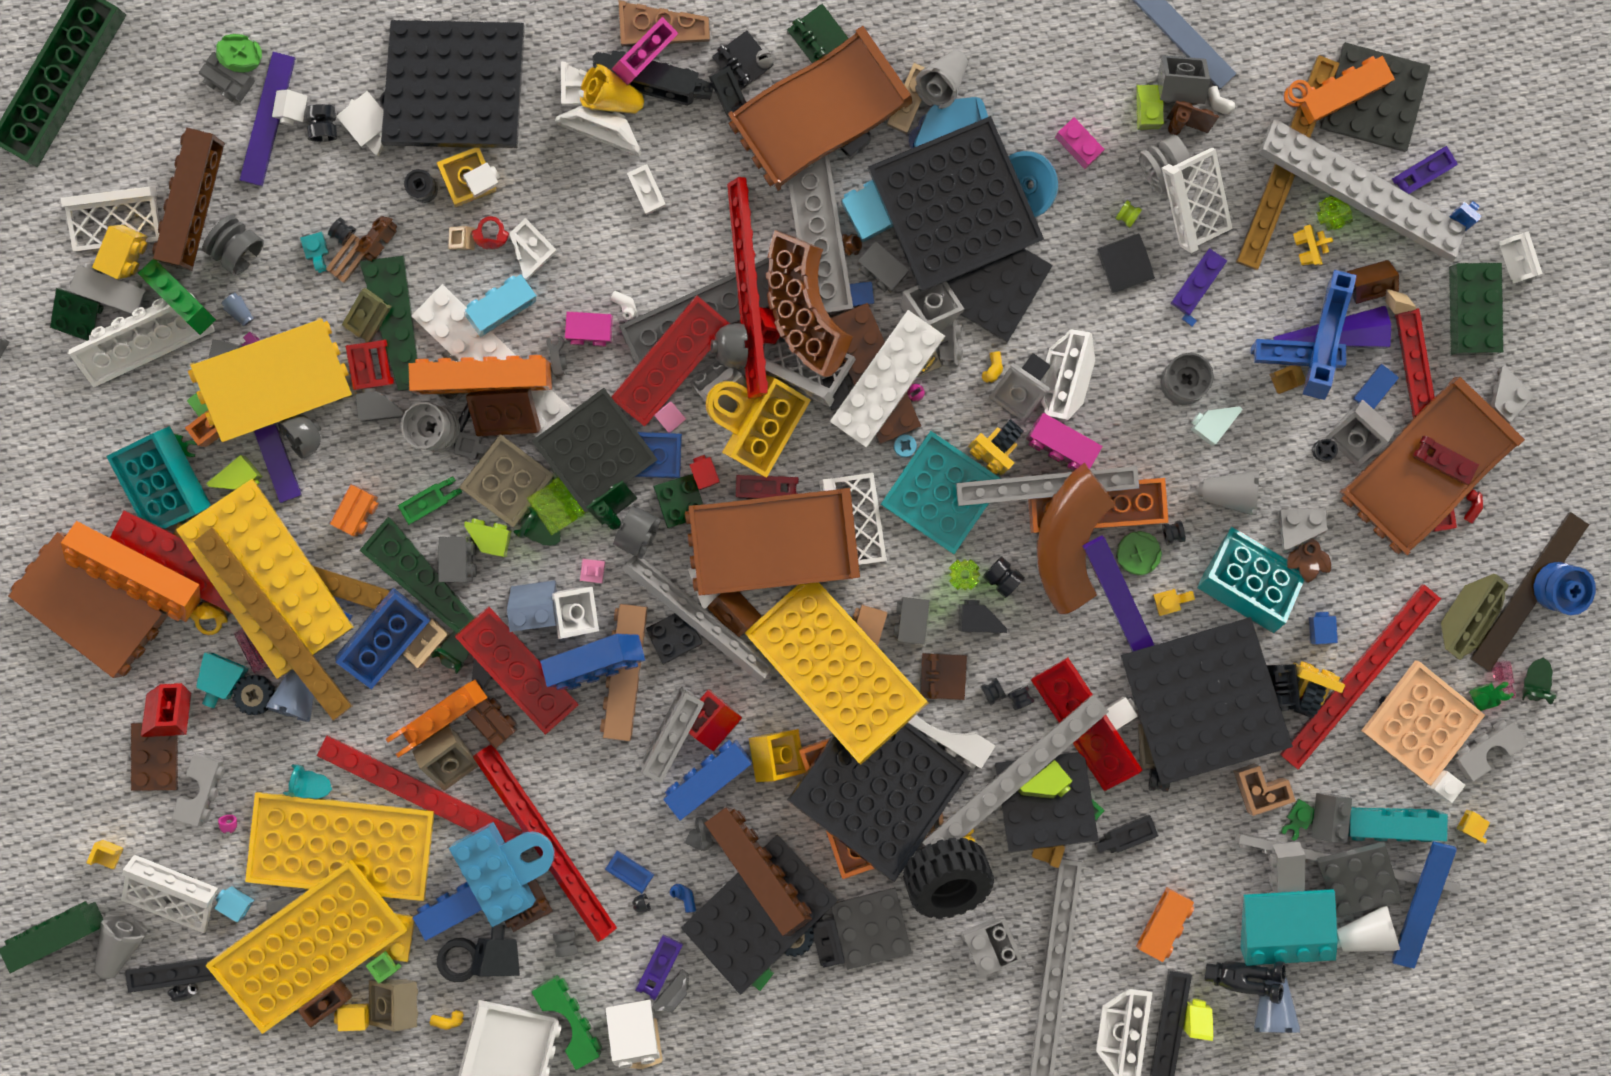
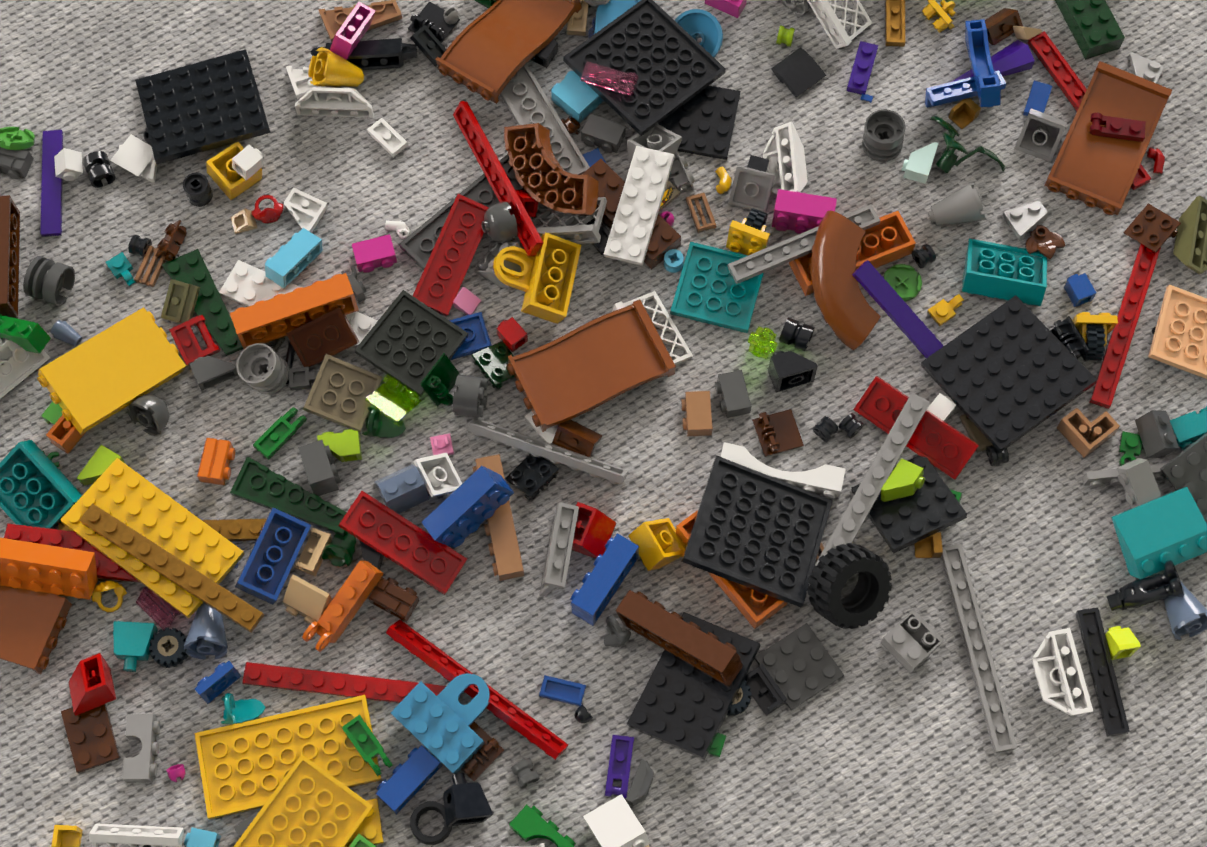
camera: 15 degrees left, 20 degrees down
(277, 463) = (134, 444): dark purple tile -> none
(283, 753) = (220, 680): none -> blue plate
(404, 697) = (305, 600): none -> tan slope
(418, 865) = (365, 743): none -> green hinge
(445, 758) = (362, 644): dark tan slope -> none
(684, 894) = (620, 693): blue arm -> none
(761, 487) = (558, 329): dark red plate -> none
(836, 669) = (683, 445): yellow plate -> none
(908, 212) = (609, 78): none -> clear pink plate
(955, 397) = (705, 226): none -> medium nougat tile
(1128, 835) = (991, 509): black hinge -> none
(1165, 924) = (1056, 572): orange brick -> none
(1251, 426) = (949, 158): none -> dark green plant
(1328, 447) = (1019, 151): black wheel -> none
(1431, 587) = (1152, 228): none -> reddish brown hinge

